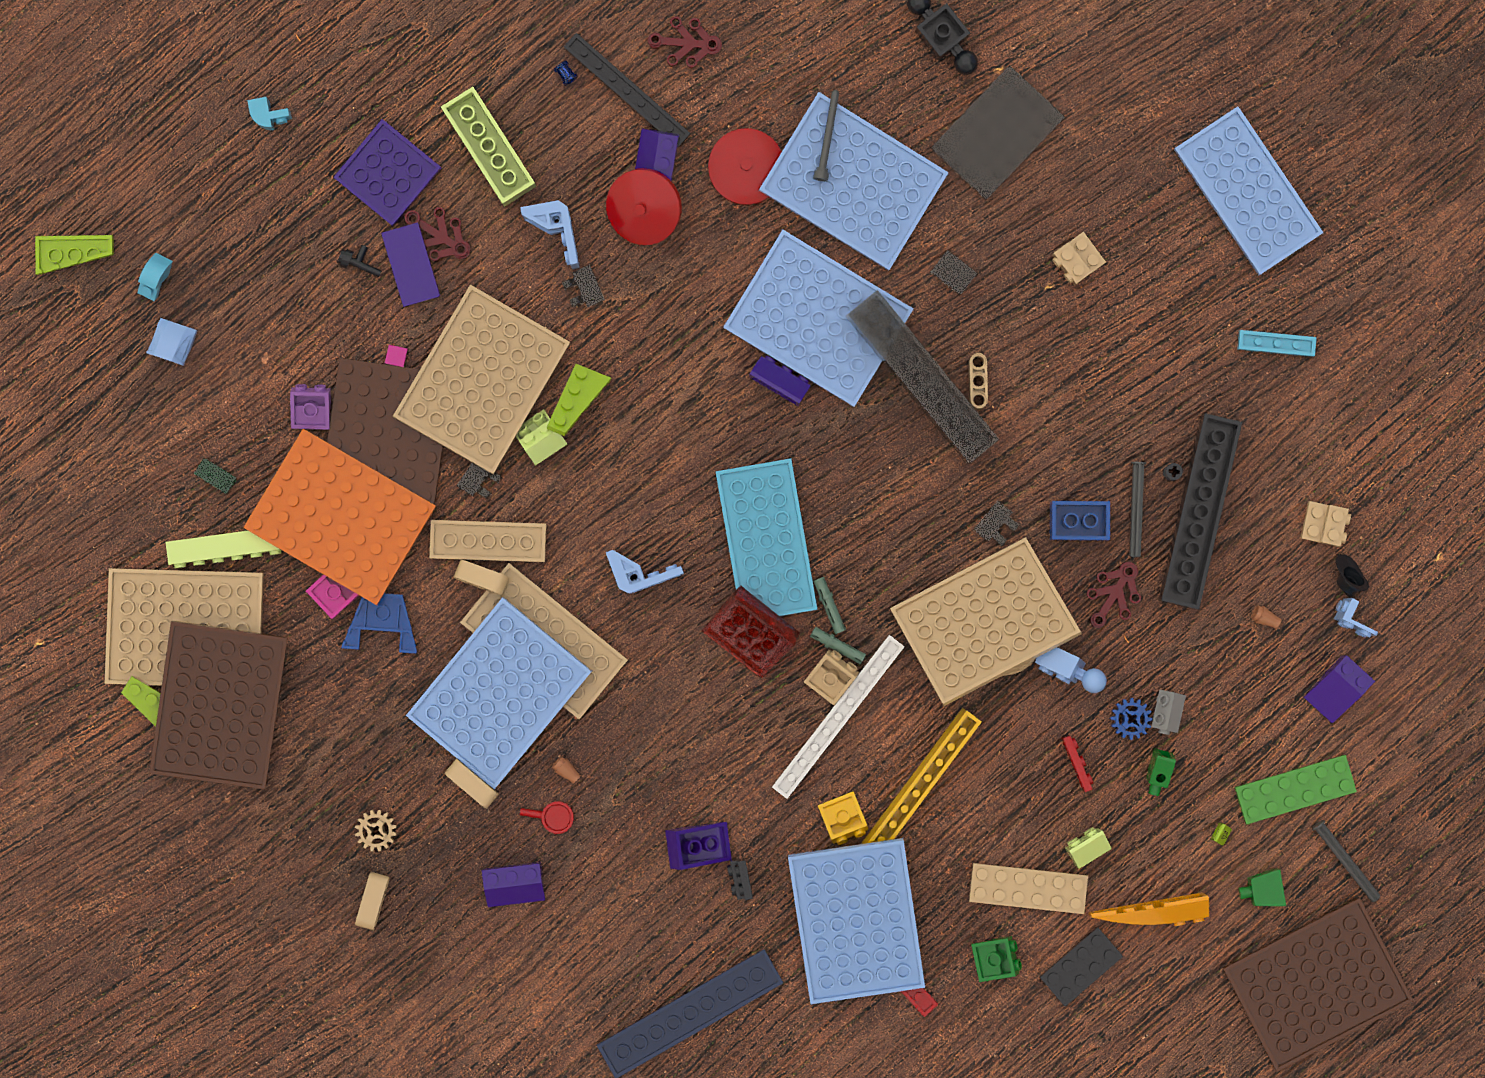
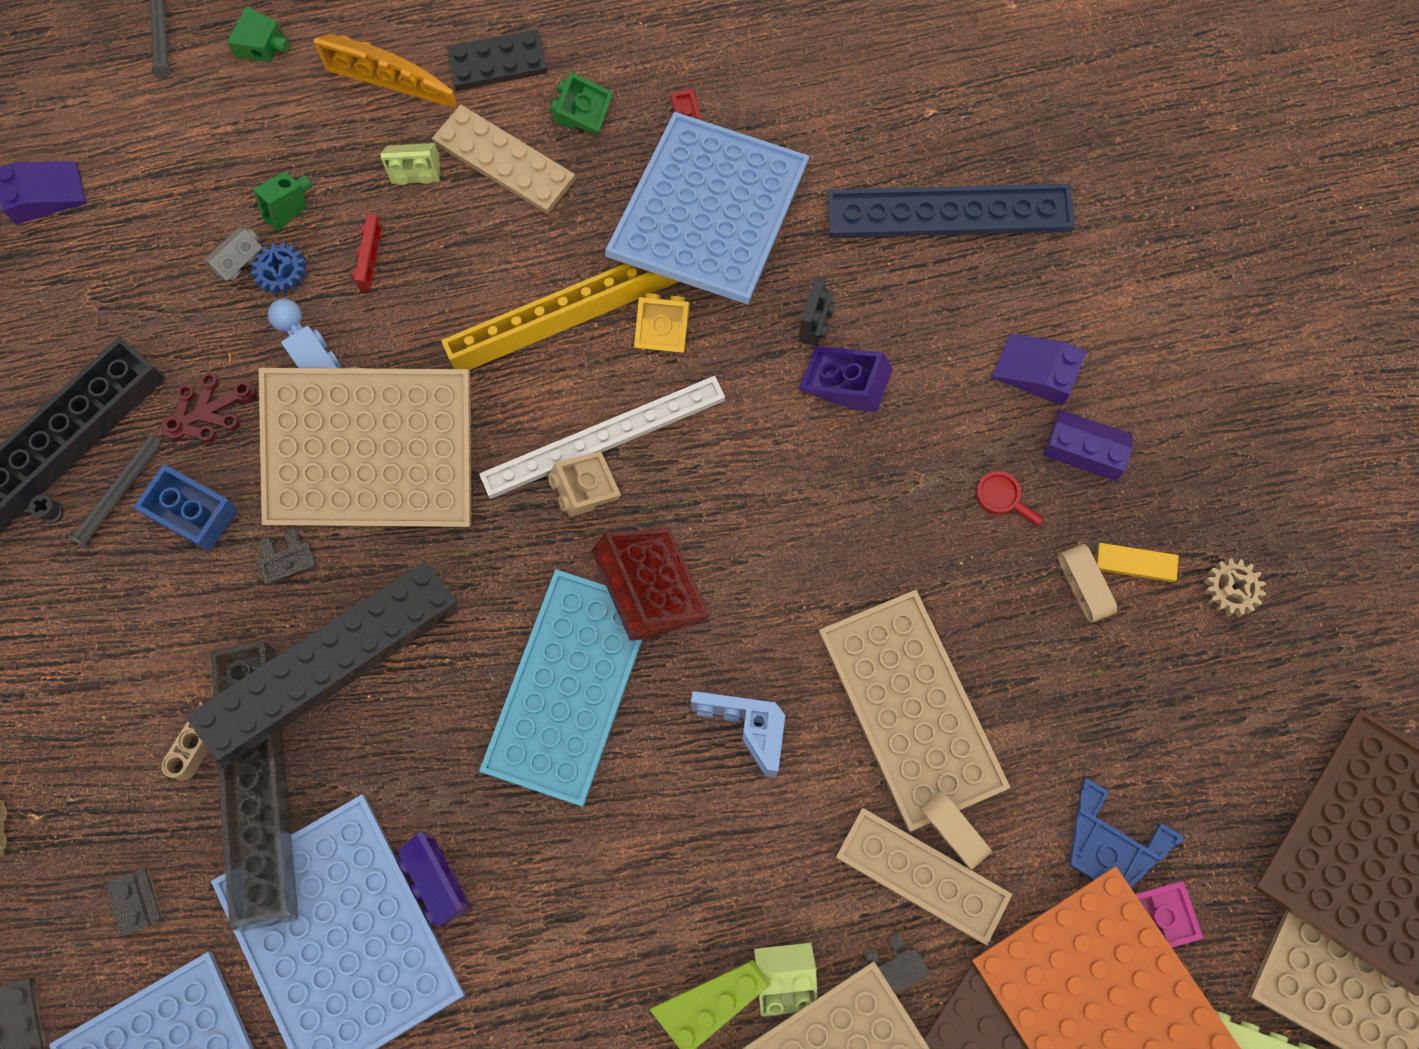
camera: 145 degrees left, 15 degrees down
(372, 901) = (1274, 508): tan beam -> none
(445, 816) = (1137, 562): none -> yellow tile
(498, 693) = (1001, 673): light blue plate -> none
(565, 769) = (961, 540): nougat cone -> none
(572, 923) = (1040, 366): none -> dark purple slope
(829, 605) = (537, 579): sand green pin -> none
(837, 645) = (561, 524): sand green pin -> none
(921, 470) = (321, 664): none -> black brick
(1221, 833) = (266, 112): lime slope -> none
(1265, 617) = (62, 300): nougat cone -> none
(1295, 789) = (160, 117): bright green plate -> none

